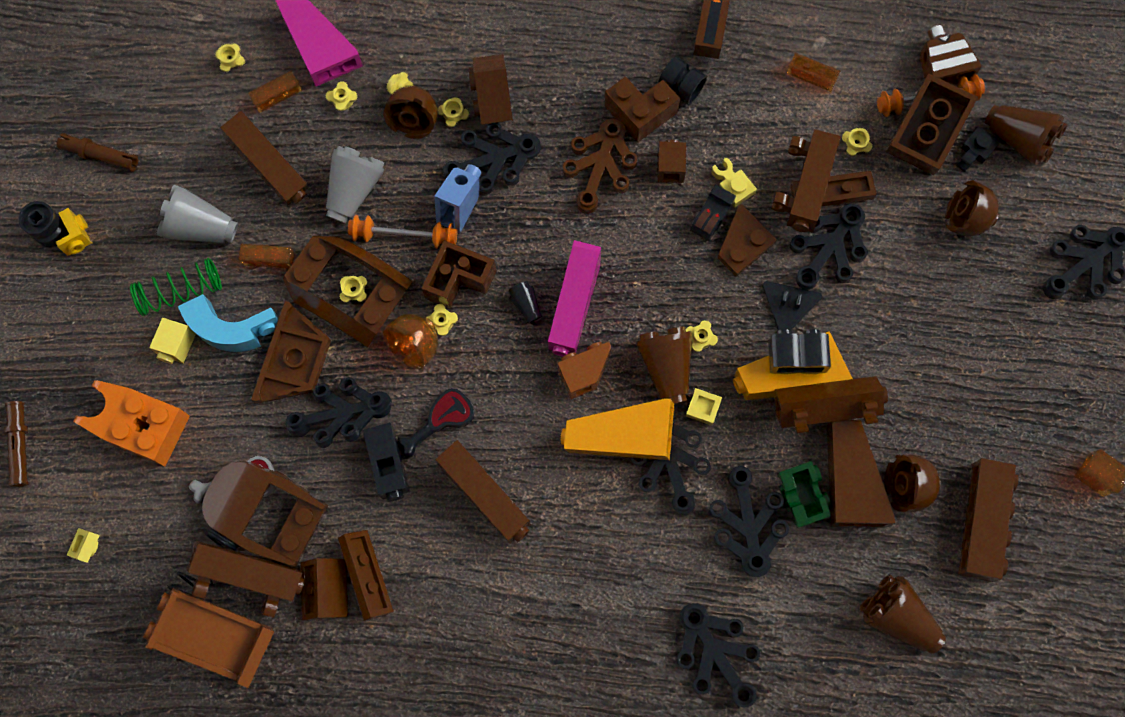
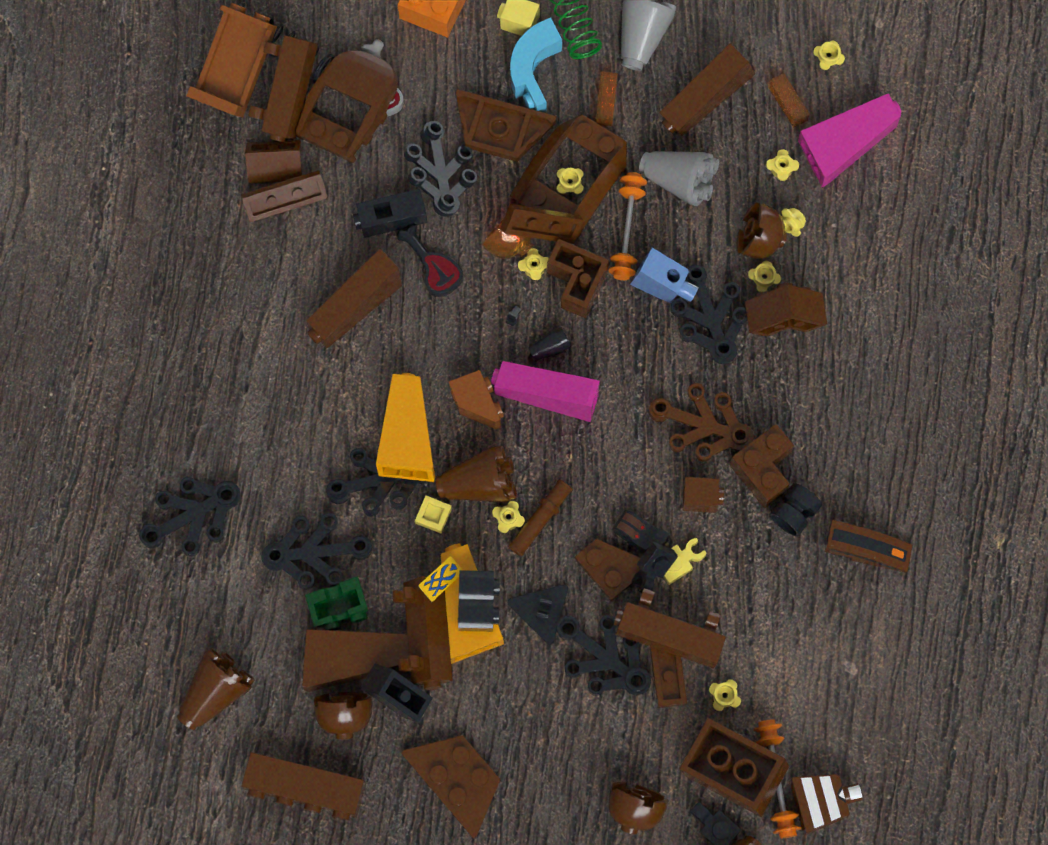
camera: 90 degrees right, 0 degrees up
(407, 302) = (541, 223): none -> reddish brown plate
(496, 338) = (513, 316): none -> black piece
(700, 305) = (538, 520): none -> reddish brown pin
(744, 195) = (653, 563): none -> black plate
(779, 388) = (440, 579): none -> yellow sticker
(813, 72) = (809, 654): clear orange piece -> none
(893, 429) = (396, 692): none -> black brick
(960, 375) = (457, 779): none -> reddish brown wing

